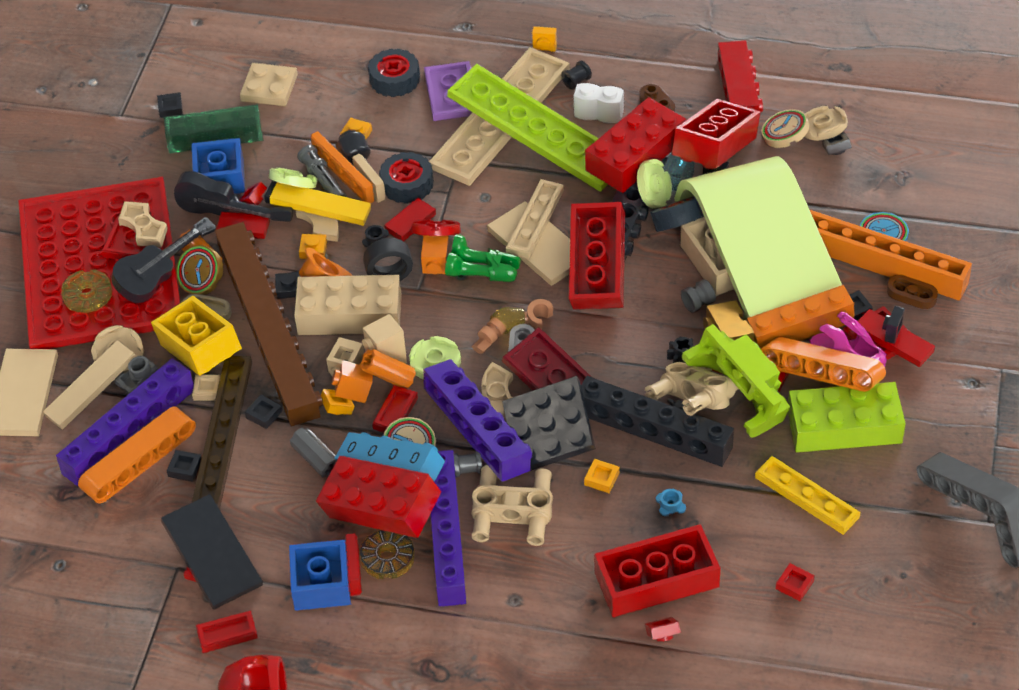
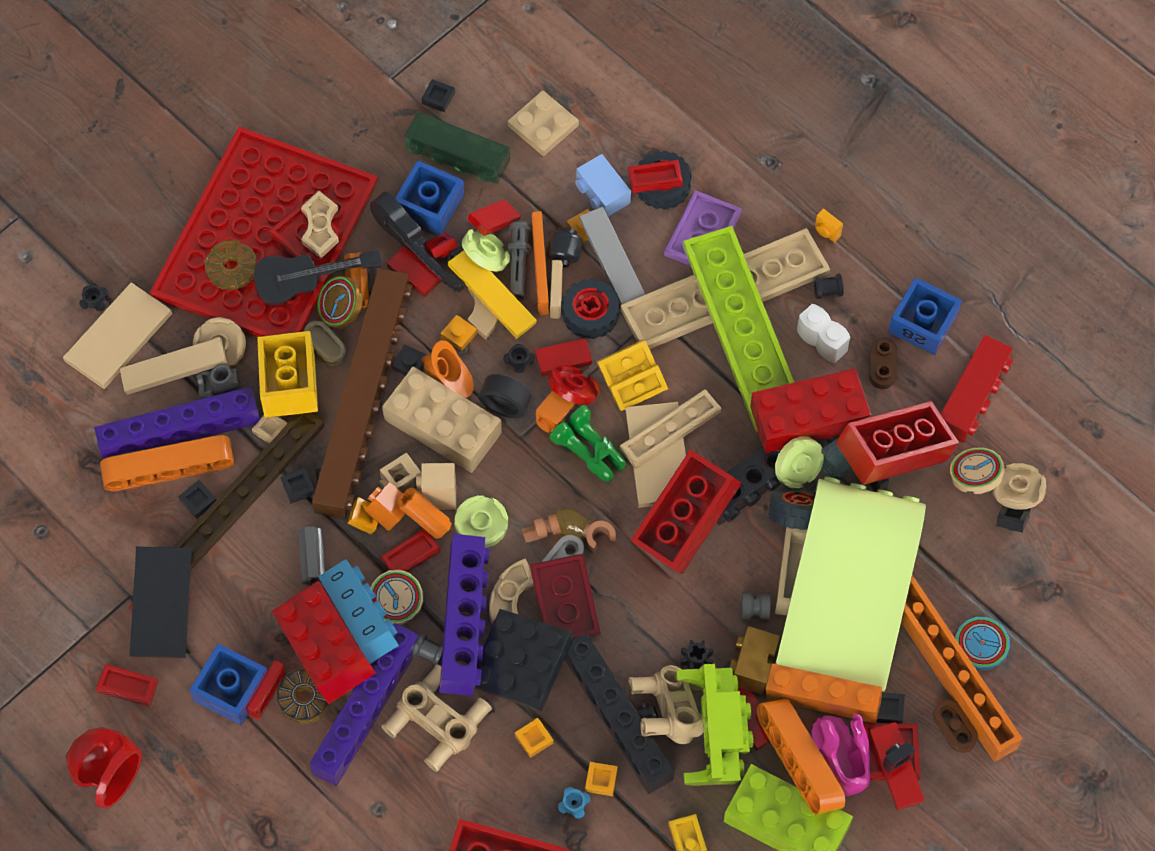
camera: 30 degrees right, 15 degrees up
(280, 156) = (493, 217): none -> red tile
(351, 97) = (602, 185): none -> light blue brick
(388, 68) = (655, 176): none -> red tile
(392, 133) = (611, 255): none -> light grey tile
(475, 201) = (632, 375): none -> yellow slope
(665, 54) = (925, 316): none -> blue brick
(679, 473) = (601, 779): none -> light orange plate

